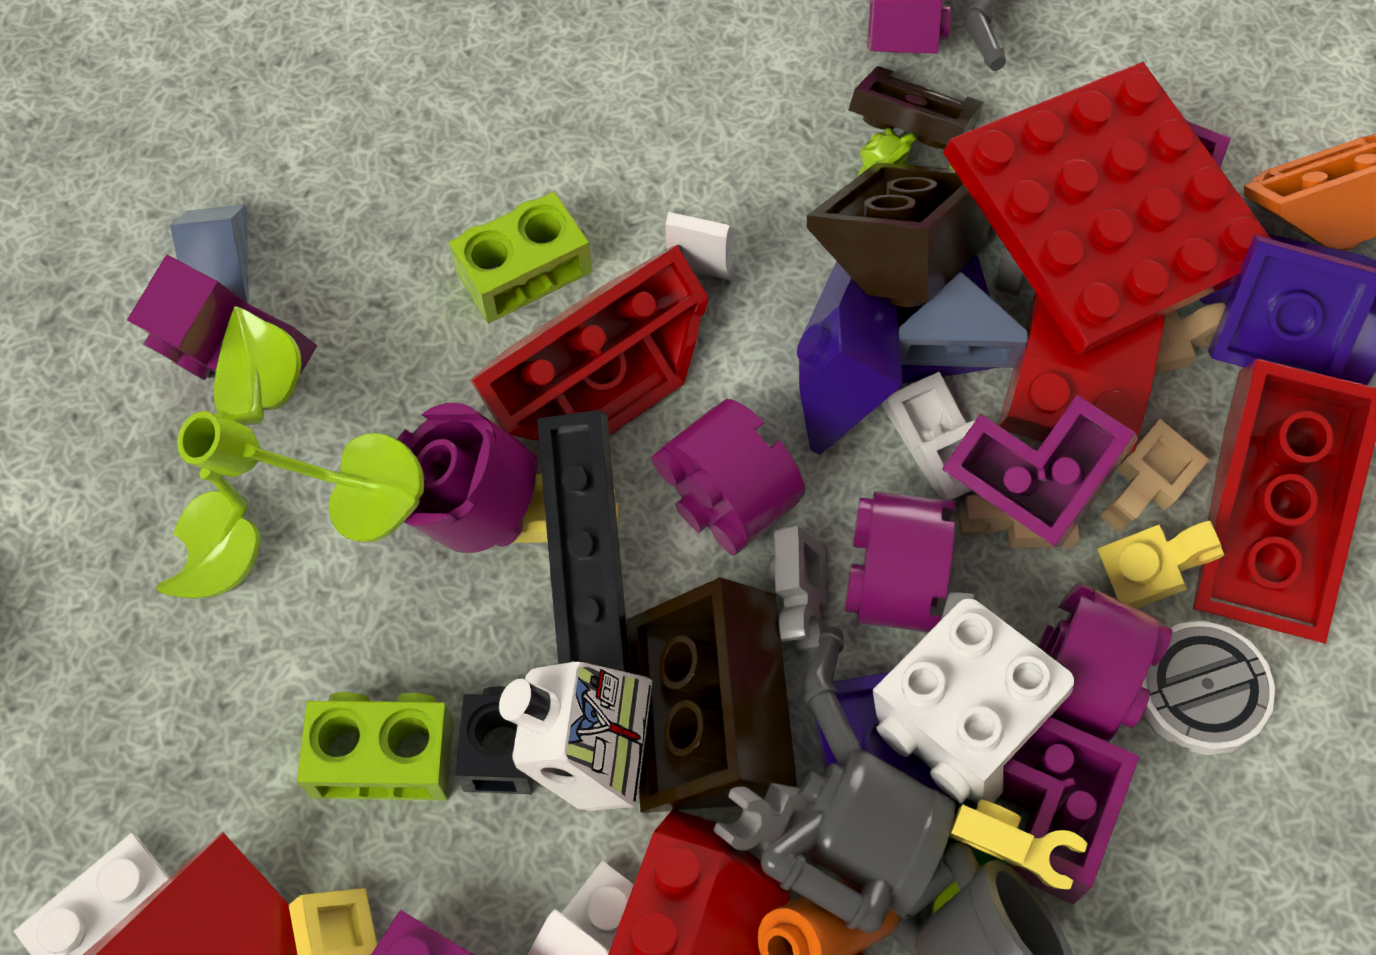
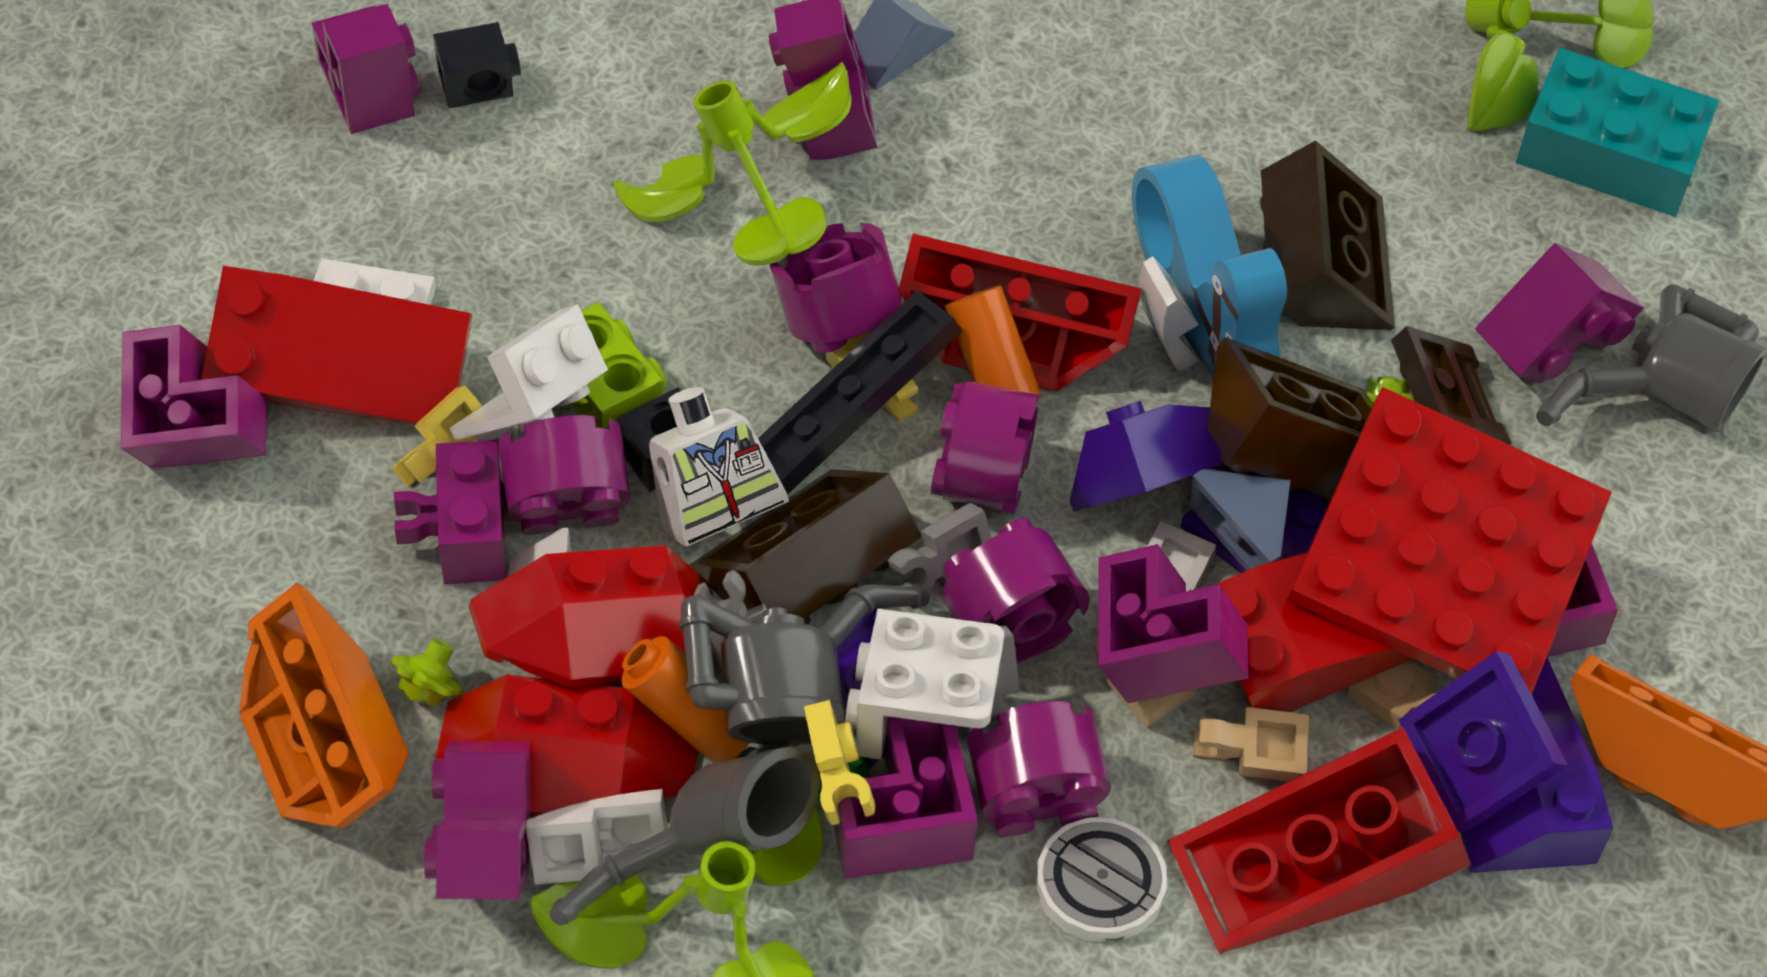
camera: 50 degrees right, 10 degrees down
(378, 834) = (537, 372): none -> white bracket
(485, 870) = (564, 473): none -> magenta brick
(525, 266) = (1061, 218): lime brick -> none
(631, 399) = (992, 341): none -> orange brick
(699, 94) = (1328, 240): none -> dark brown slope
(756, 190) = (1191, 235): none -> dark azure animal
(1149, 567) = (1173, 780): light yellow plate -> none

